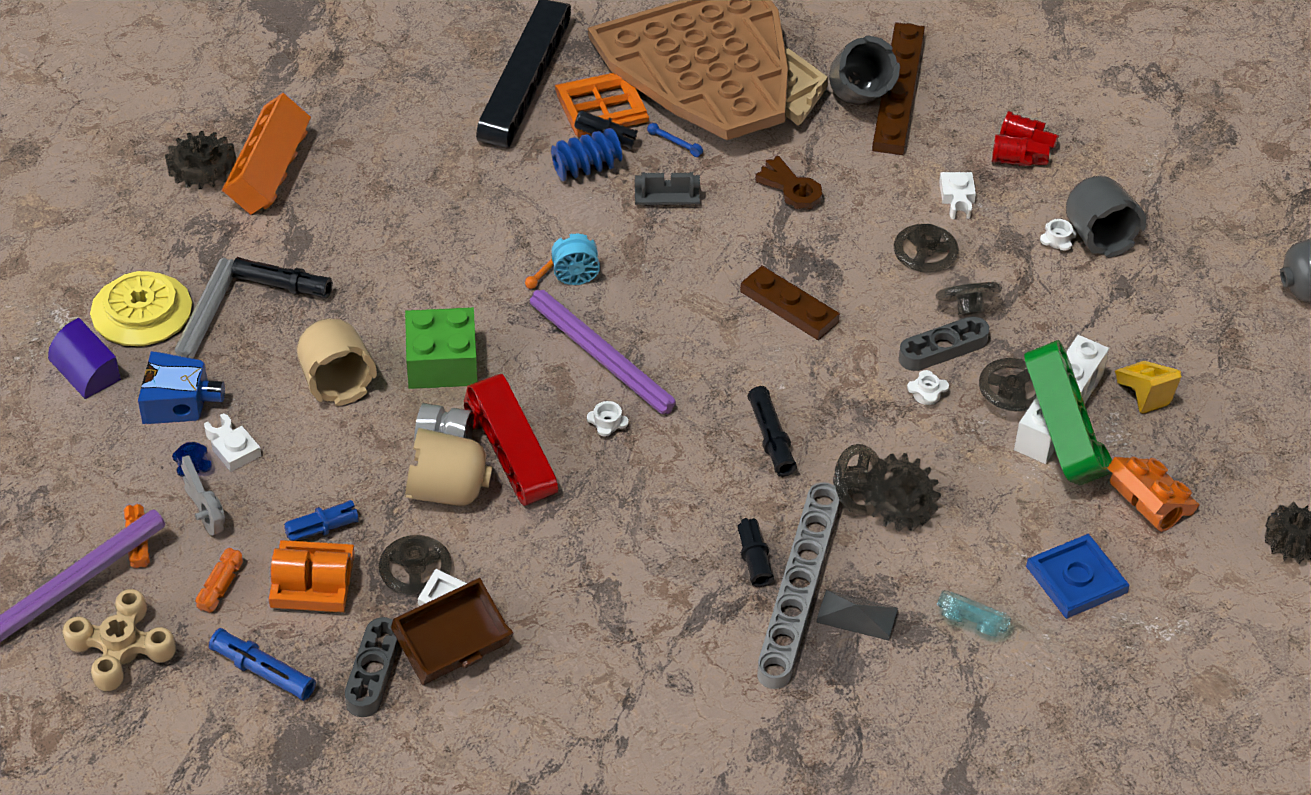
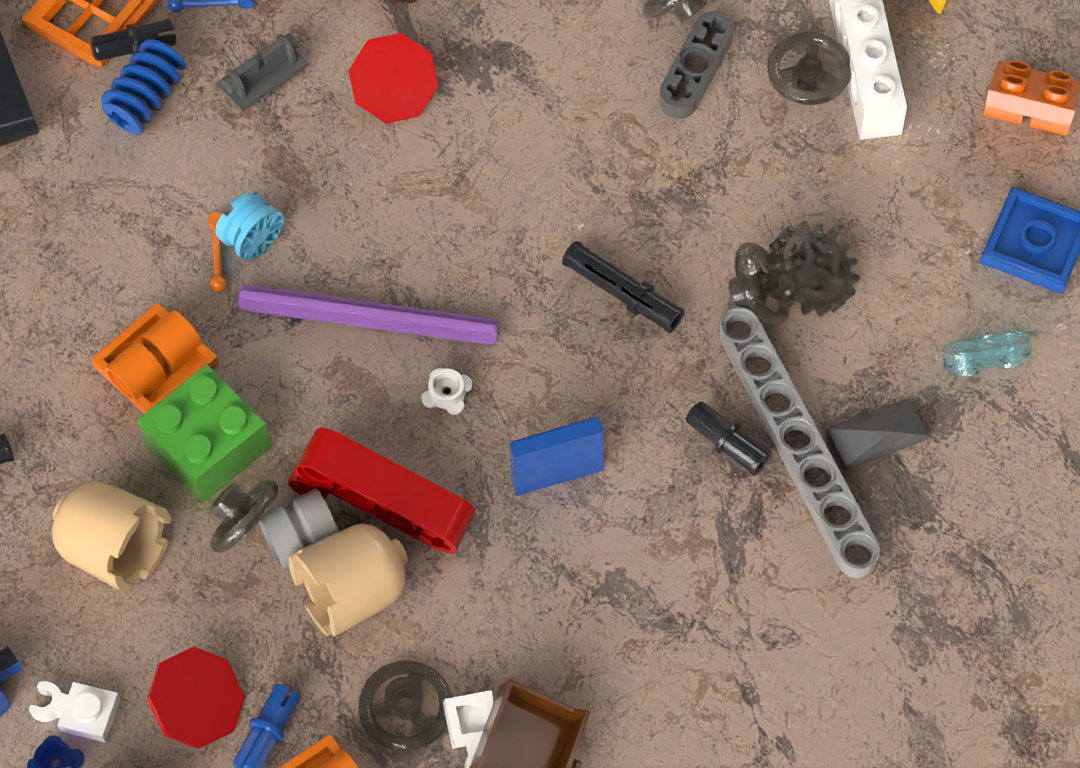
camera: 35 degrees left, 15 degrees up
(298, 476) = (195, 697): none -> red piece
(416, 391) = (240, 512): none -> clear smoke piece
(454, 290) = (153, 357): none -> orange plate
(631, 485) = (556, 456): none -> blue tile
(740, 236) = (393, 78): none -> piece
(790, 302) = (504, 121): reddish brown plate -> none
(927, 388) = (726, 137): white plate -> none
(1066, 415) = (911, 73): beam -> none

